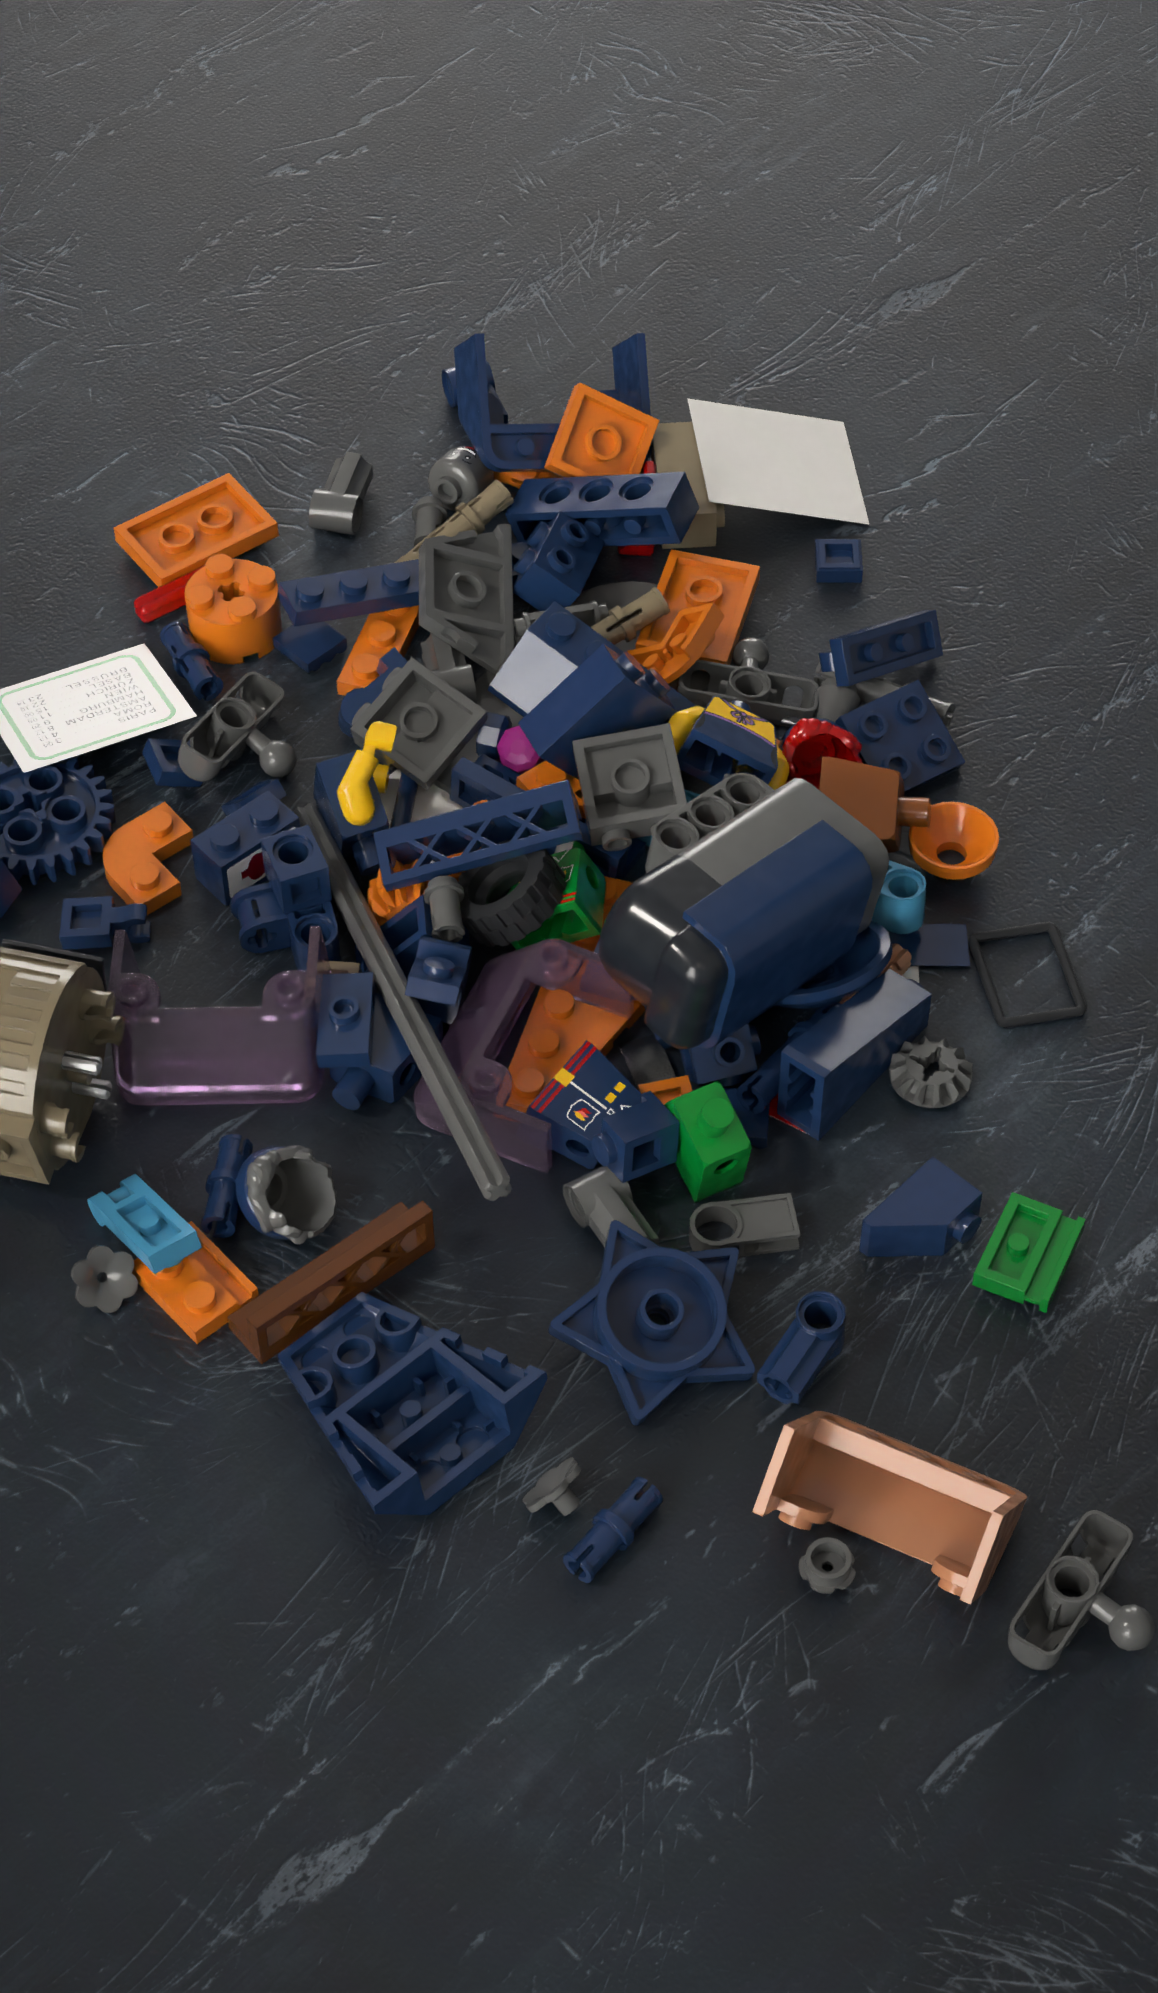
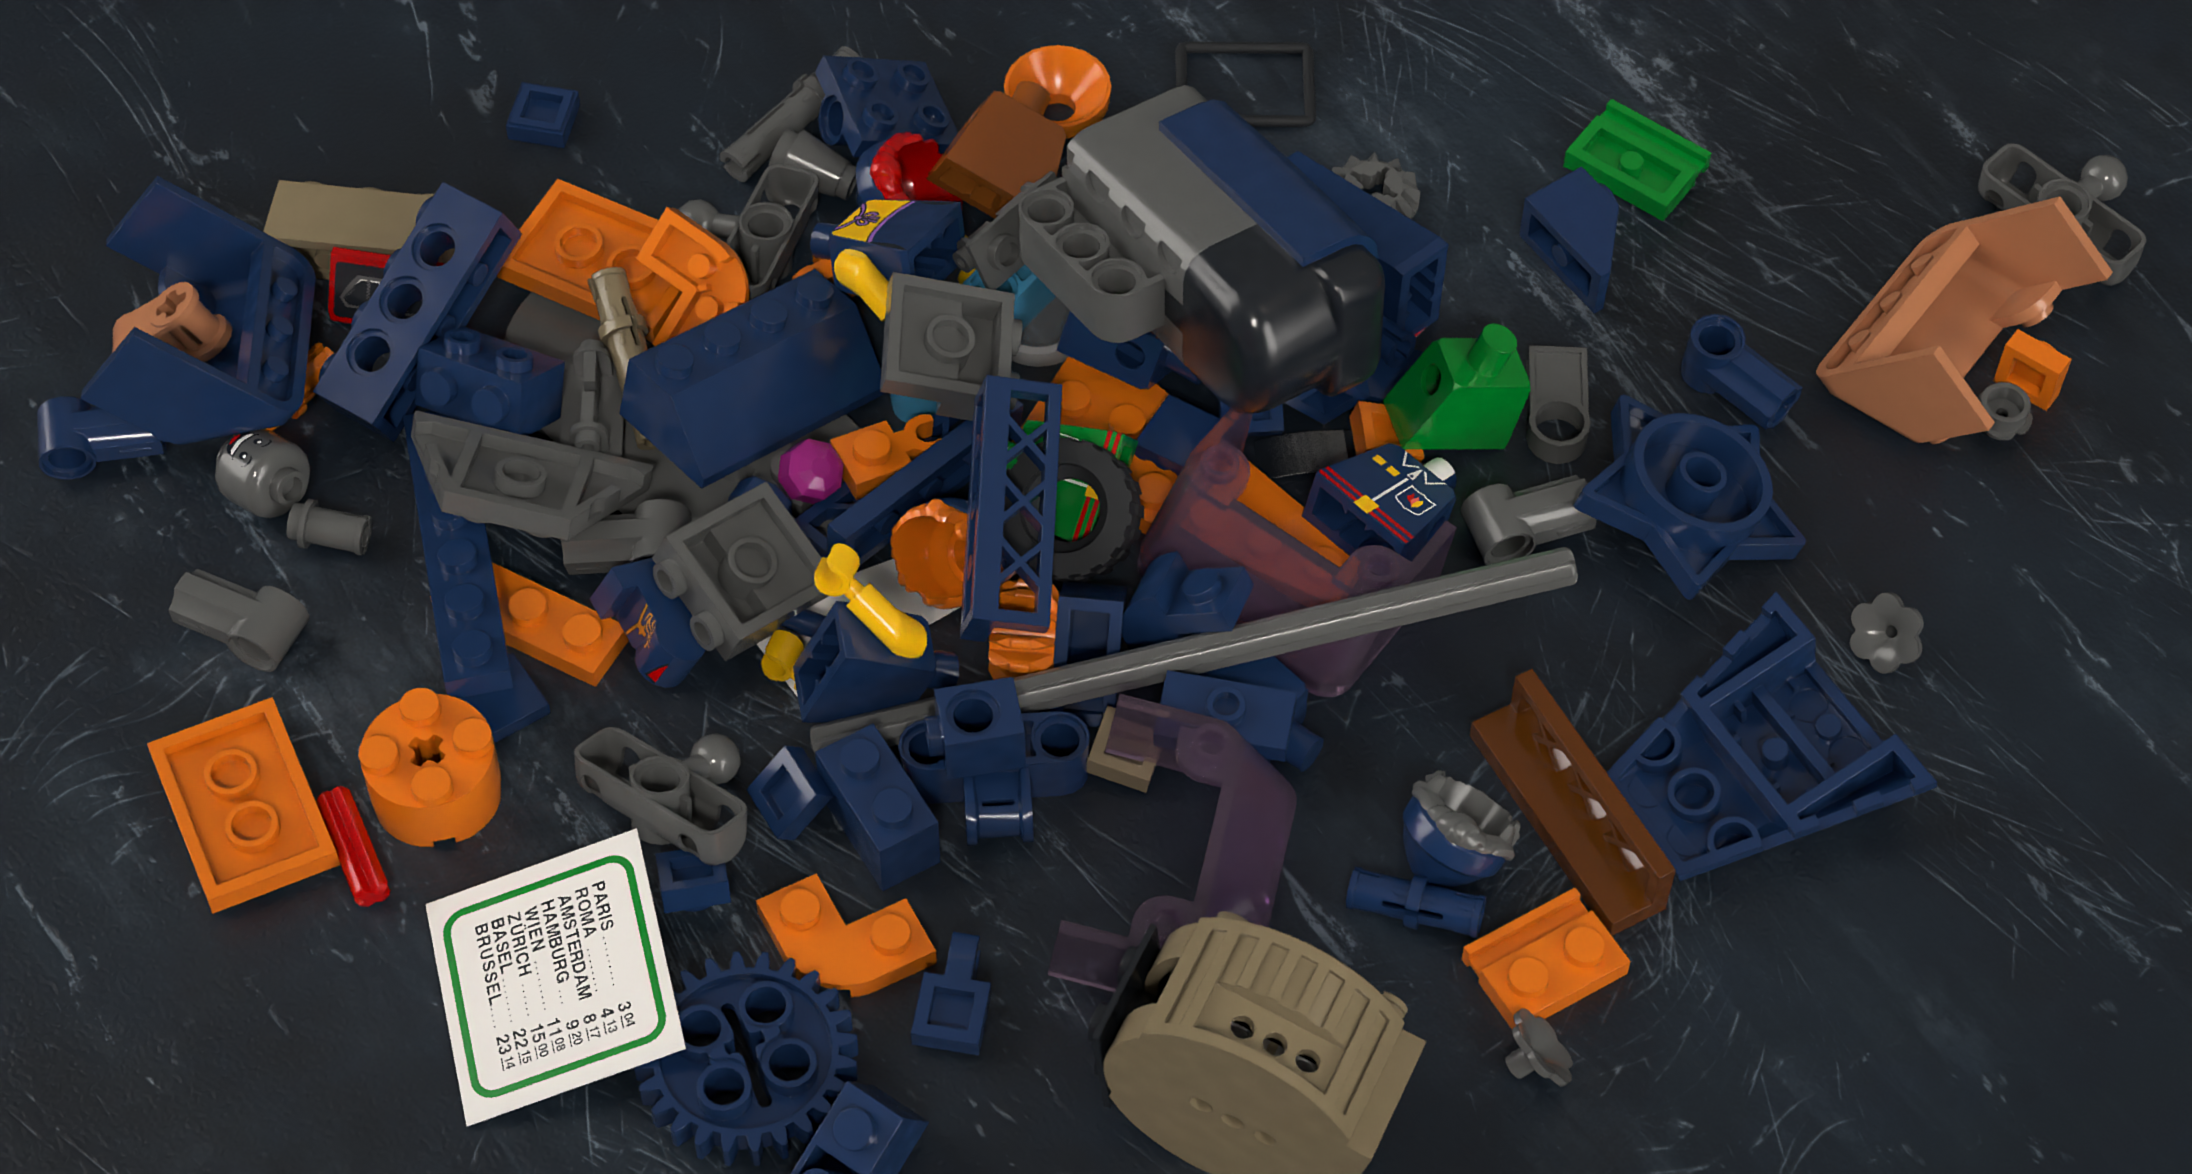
camera: 80 degrees left, 5 degrees up
(145, 1224) = (1485, 982): dark azure plate -> none
(191, 661) = (498, 839): dark blue pin -> none
(444, 900) = (1094, 573): dark grey pin -> none
(470, 516) = (352, 428): dark tan pin -> none
(546, 399) = (178, 323): none -> nougat piece
(597, 699) = (836, 350): dark blue brick -> none
(600, 436) = (298, 284): orange plate -> none
(612, 1529) = (1940, 591): dark blue pin -> none
(637, 1139) = (1465, 448): dark blue brick -> none
(777, 461) = (361, 131): white sticker -> none
(879, 1581) = (2033, 367): none -> orange plate
(883, 648) = (732, 73): dark blue plate -> none

